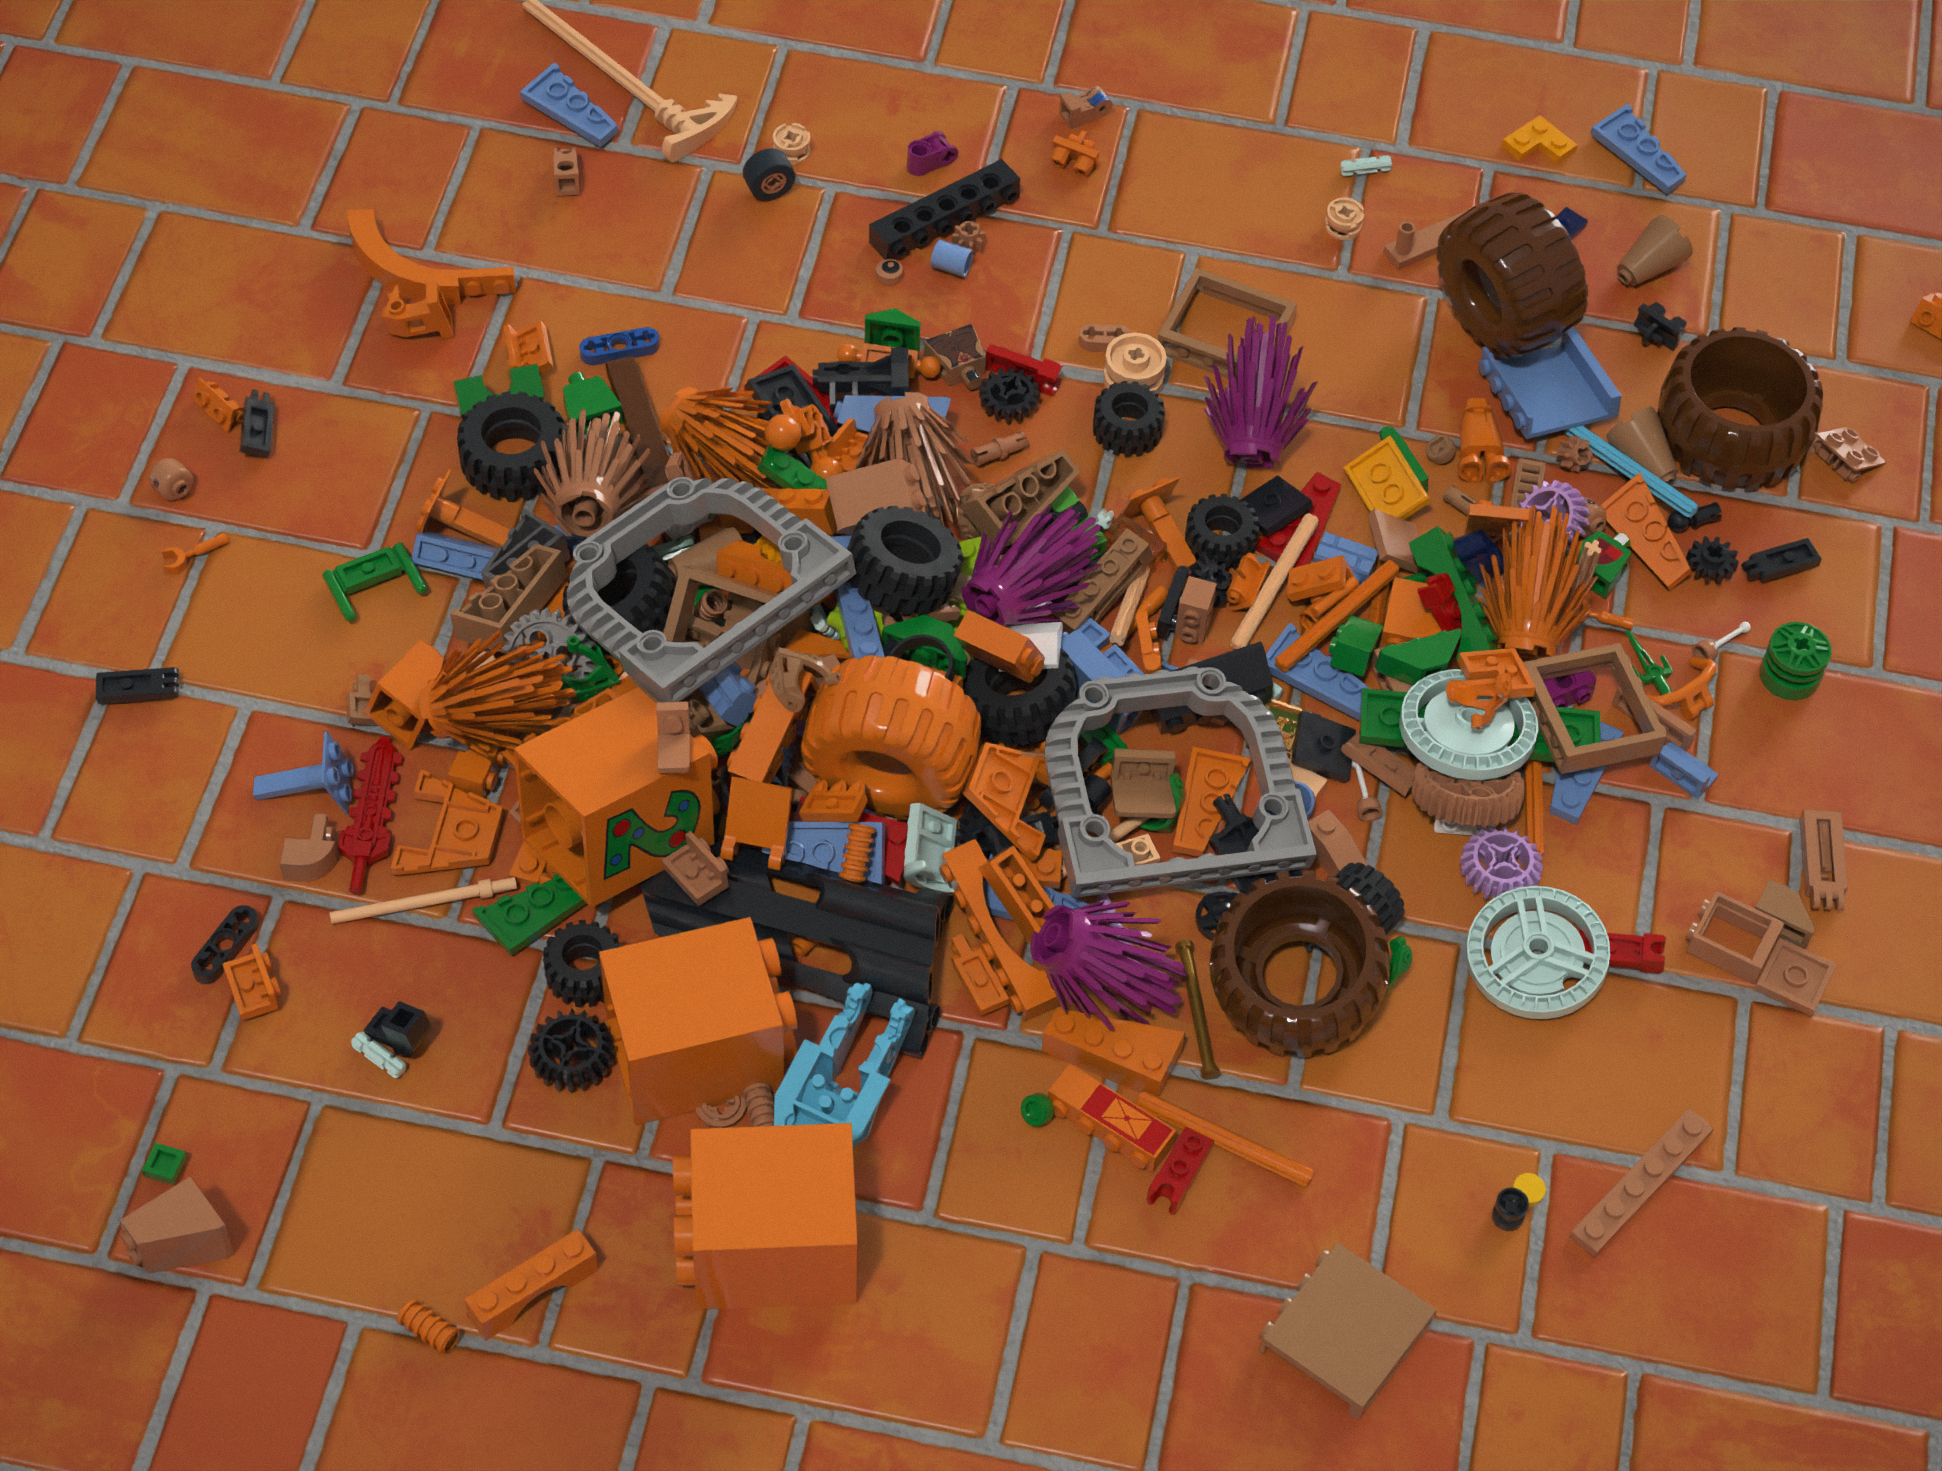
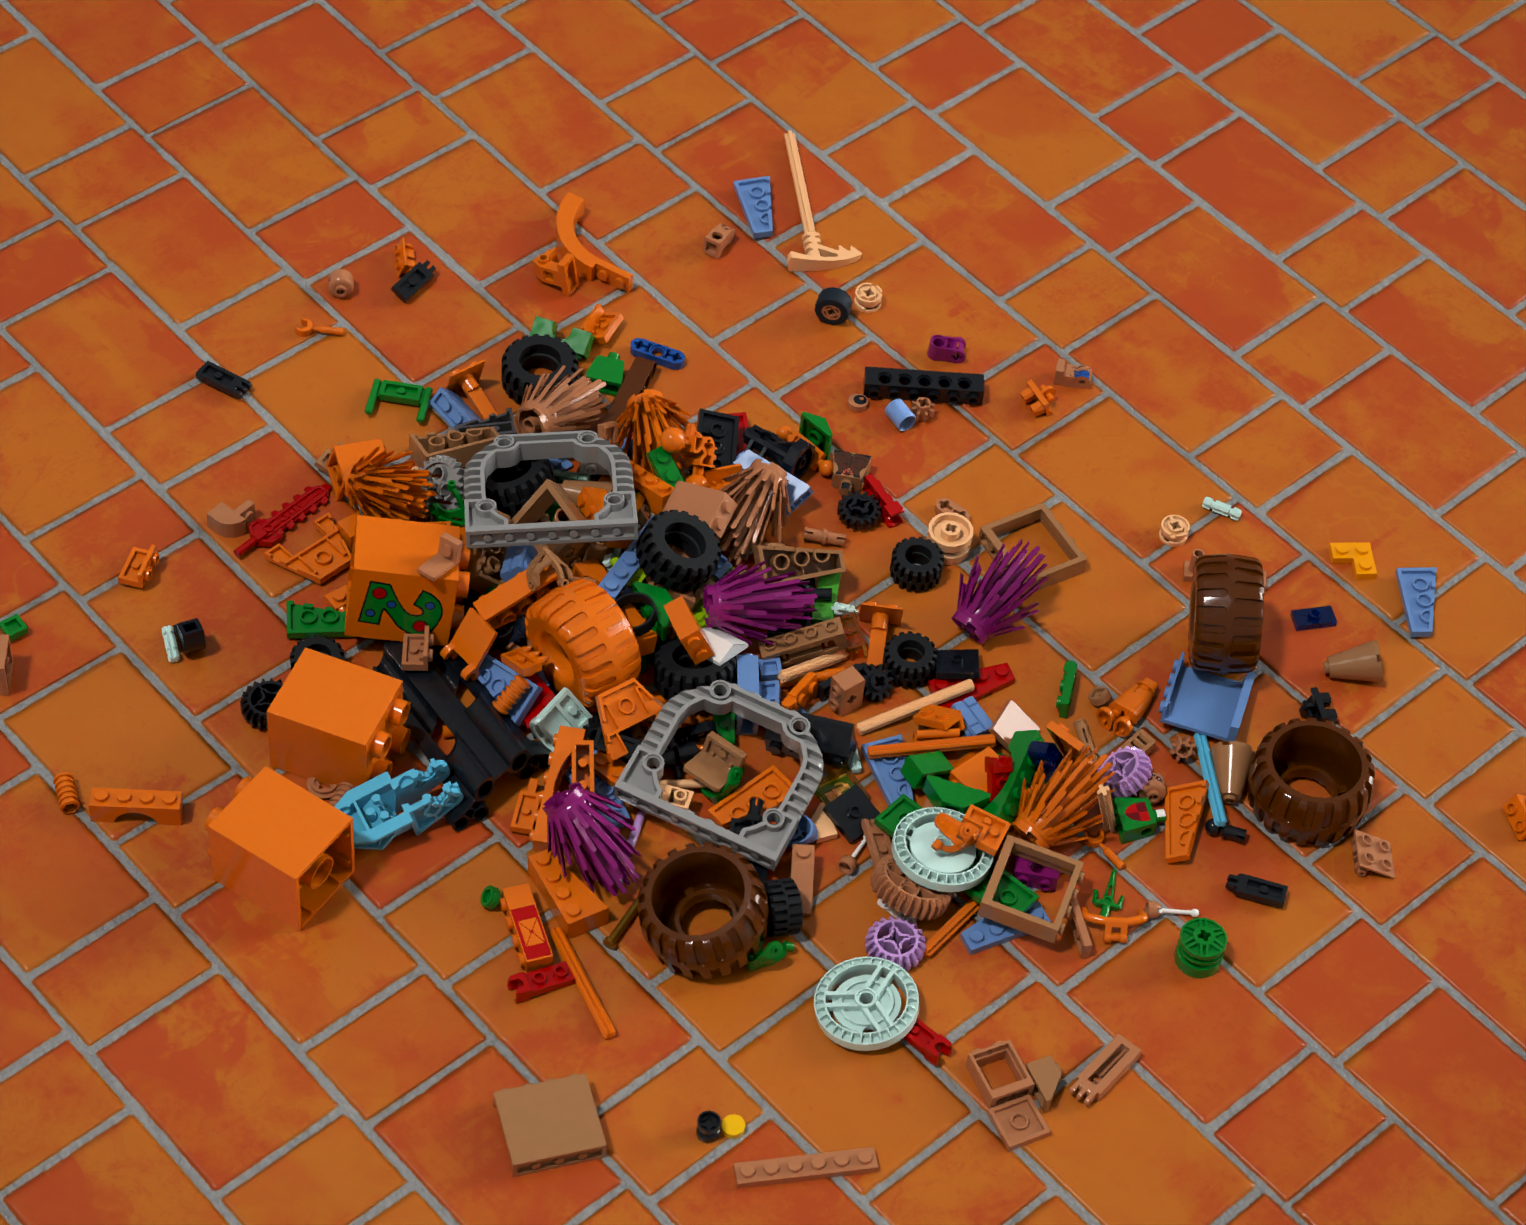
camera: 35 degrees right, 5 degrees down
(226, 930) = (159, 530): black beam -> none
(332, 774) = (277, 485): medium blue piece -> none
(483, 889) = (303, 594): light nougat bar -> none
(1244, 591) = (891, 700): orange hinge -> none
(1387, 480) = (1043, 692): light orange tile -> none
(1683, 770) = (1069, 965): medium blue panel -> none
(1712, 560) = (1210, 861): black gear -> none

